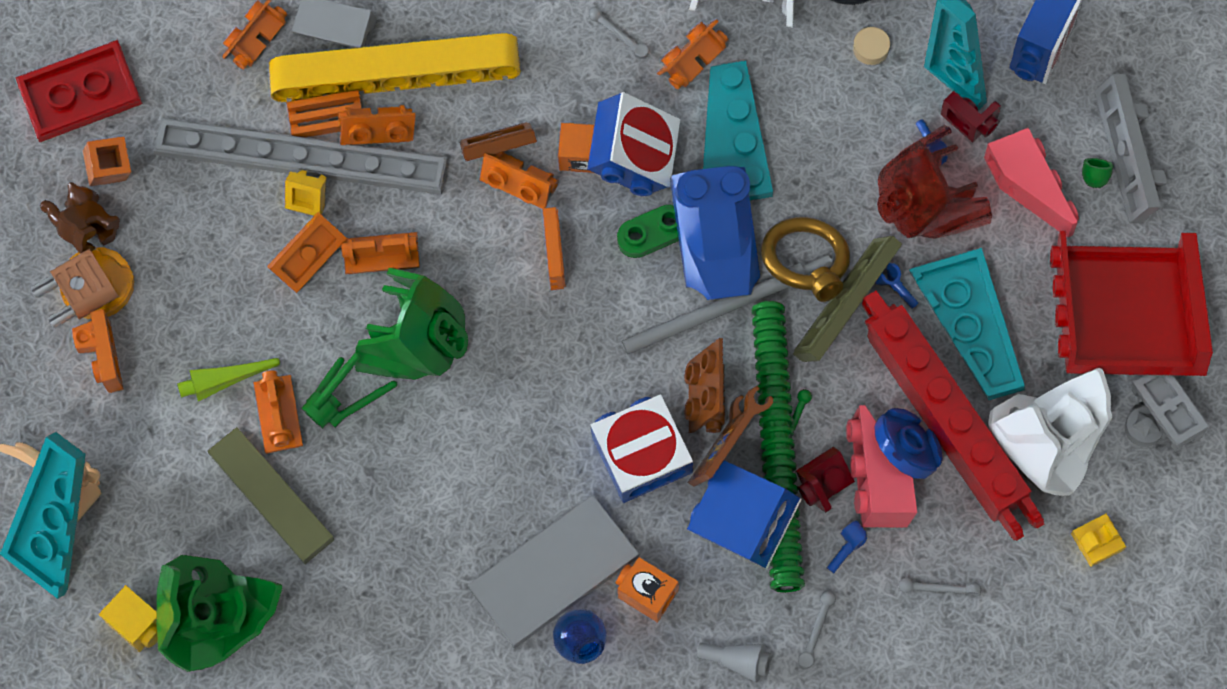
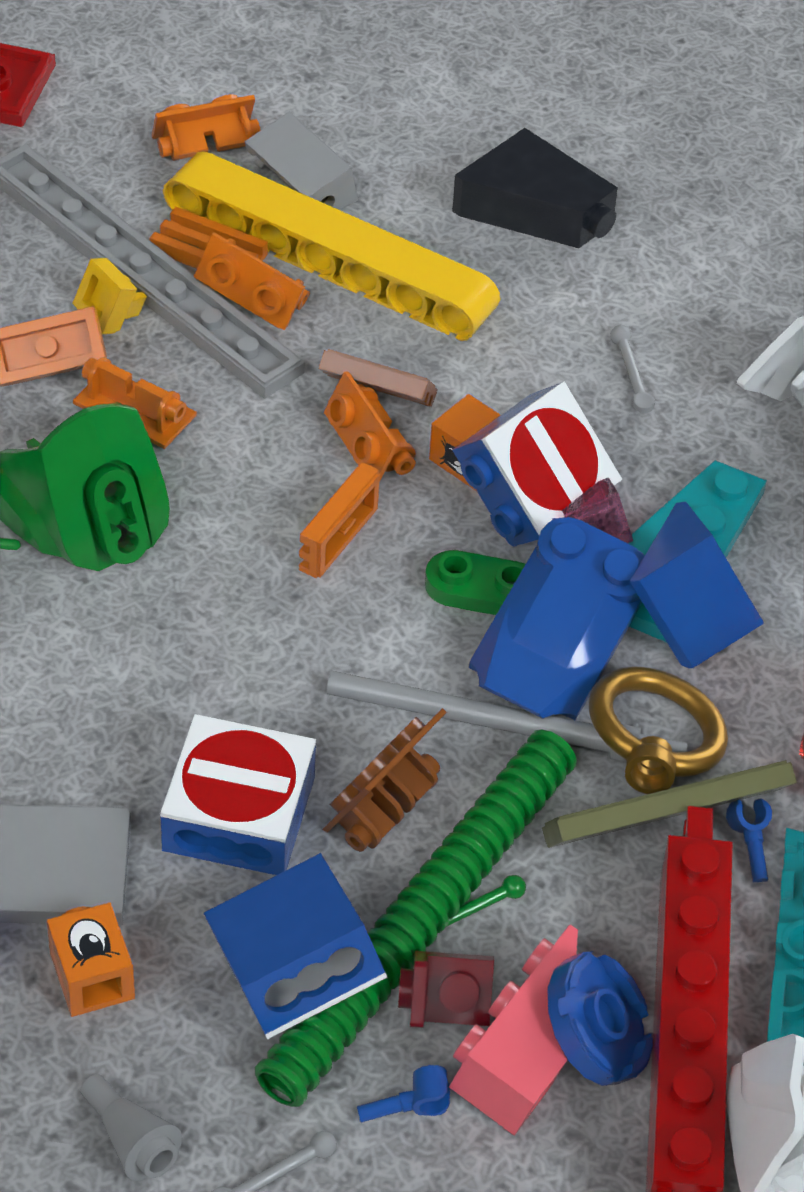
camera: 30 degrees right, 20 degrees down
(686, 152) = (602, 509): none -> clear pink slope
(702, 43) = (724, 428): orange hinge -> none
(729, 435) = (367, 839): dark orange flag -> none
(770, 165) = (693, 590): none -> blue slope

